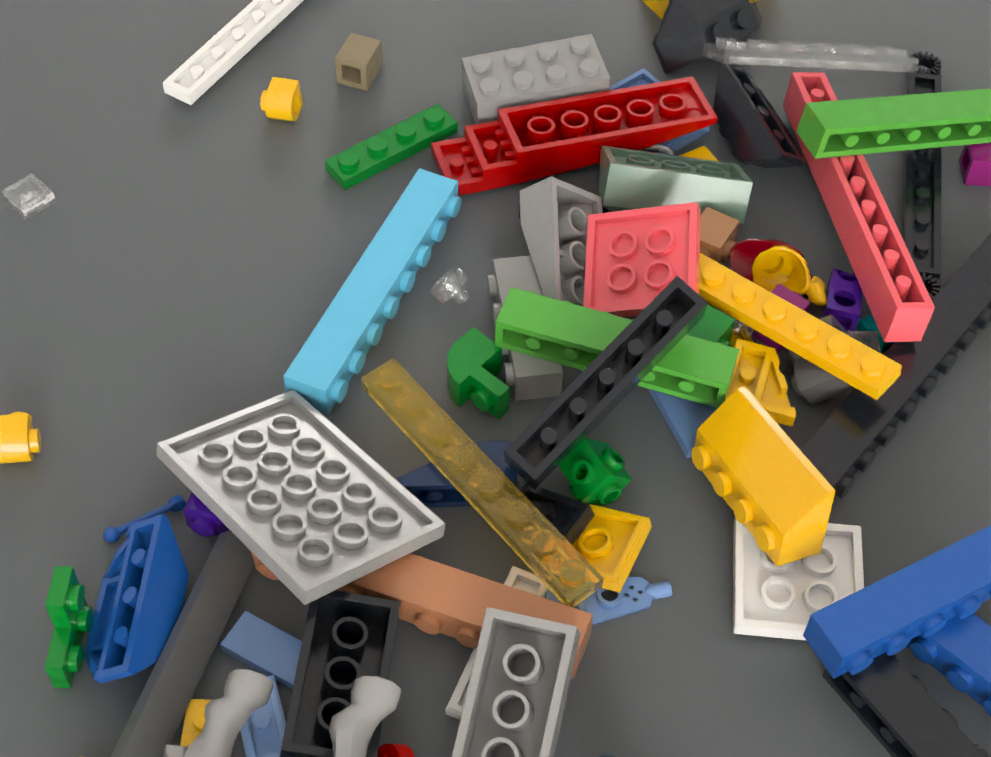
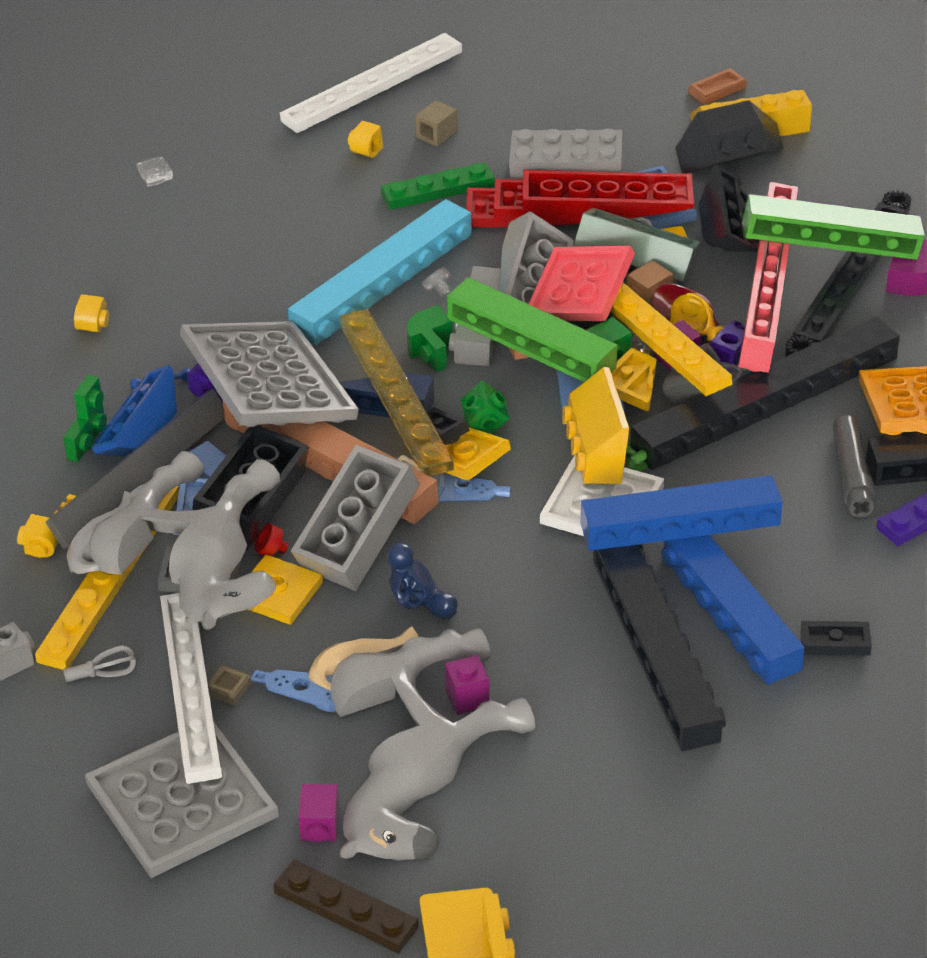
camera: 20 degrees right, 10 degrees down
(605, 382) = (503, 341): black brick -> none
(814, 56) = (806, 176): clear plate -> none

